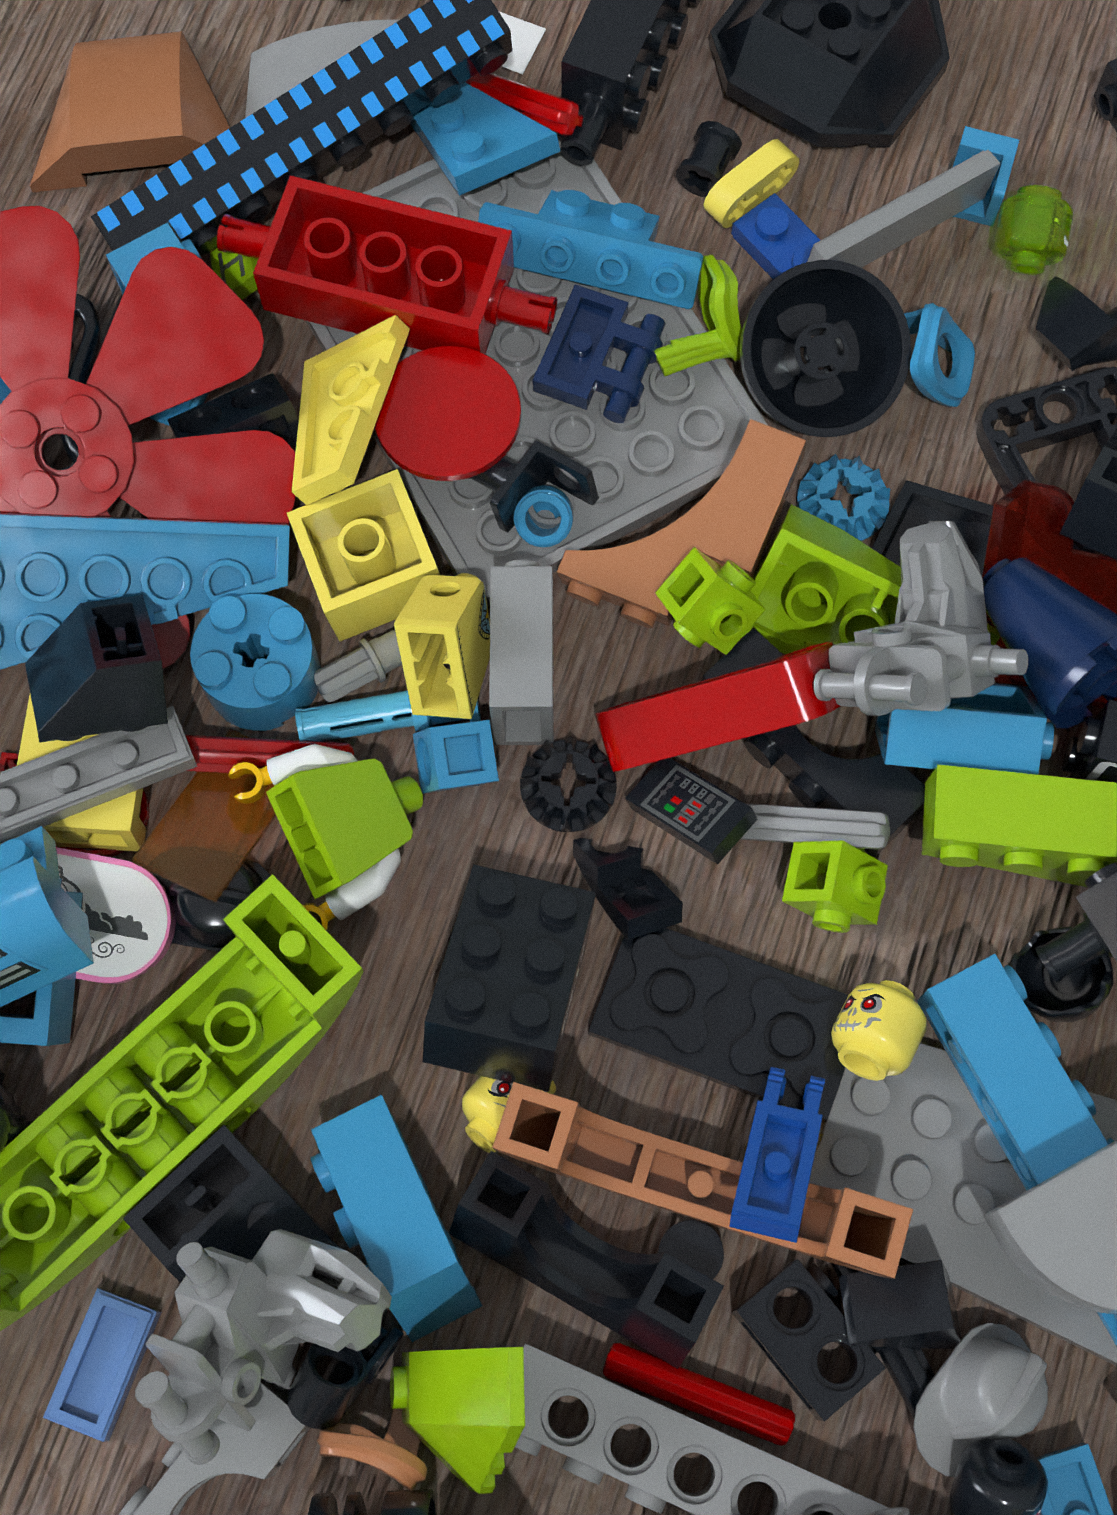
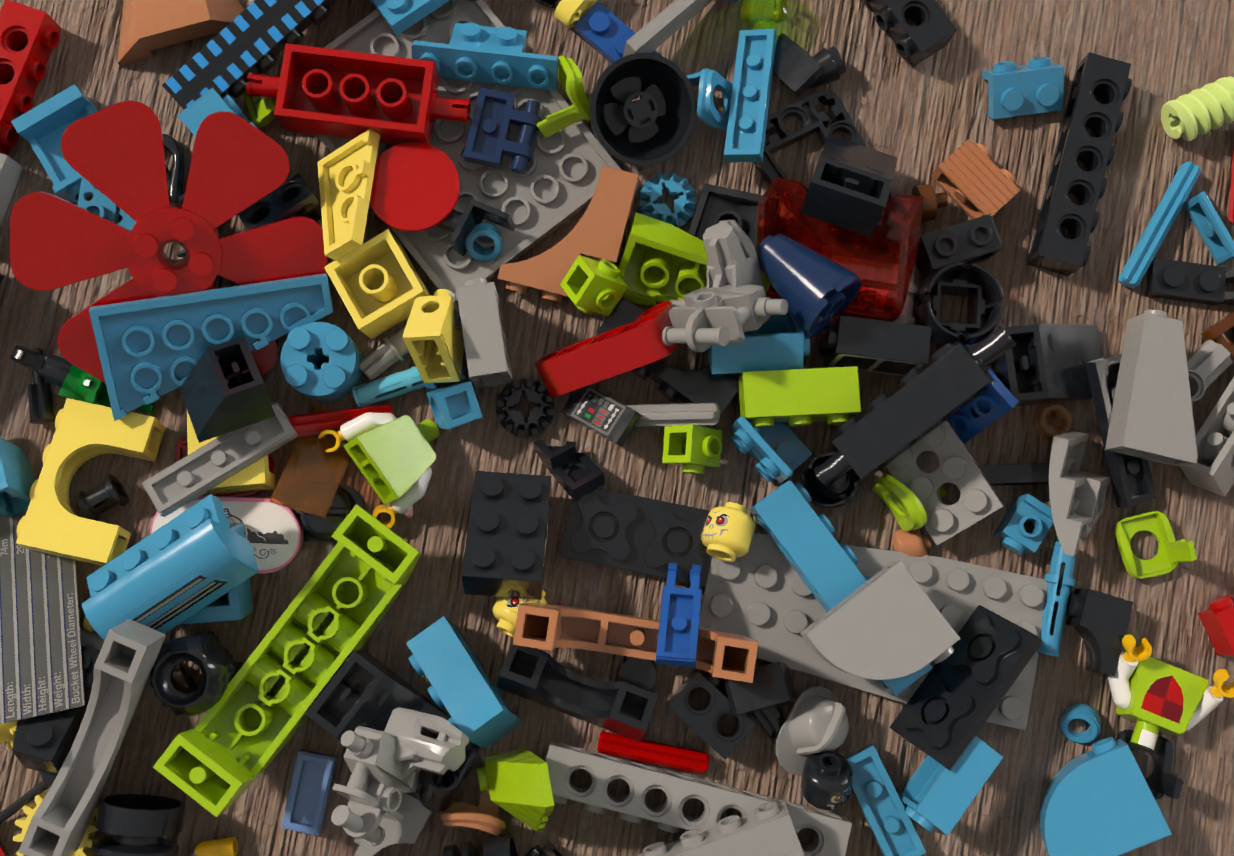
camera: 15 degrees left, 10 degrees up
(964, 903) = (773, 448): none -> dark azure bracket
(996, 359) = (750, 96): none -> dark azure plate

